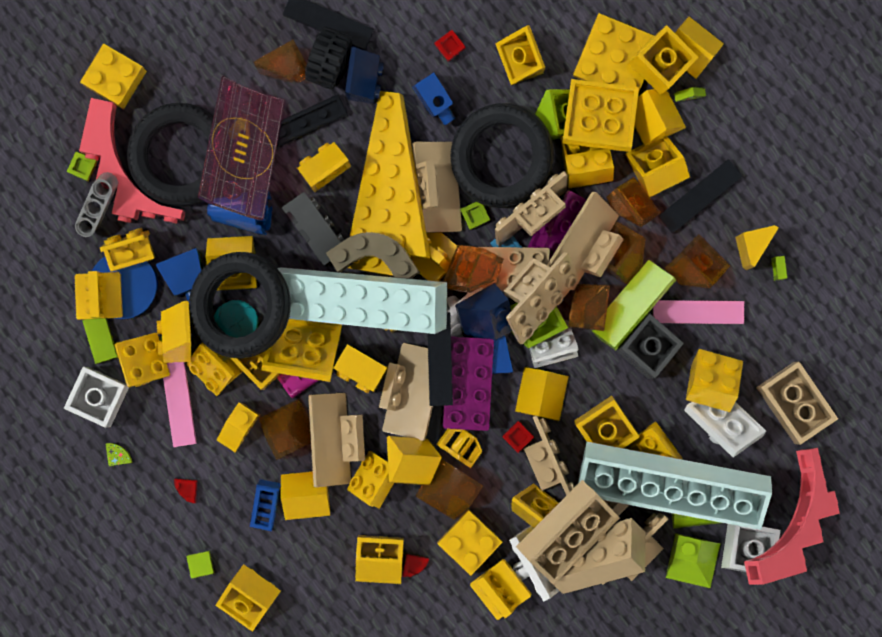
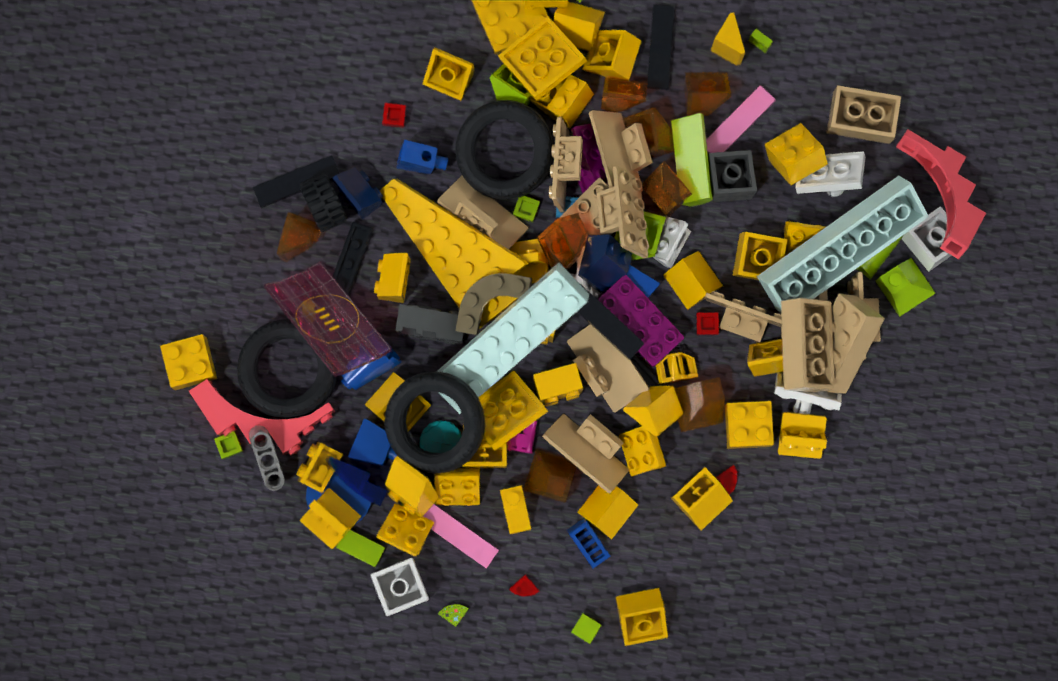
camera: 45 degrees left, 5 degrees down
(143, 289) = (357, 480): none -> clear blue slope

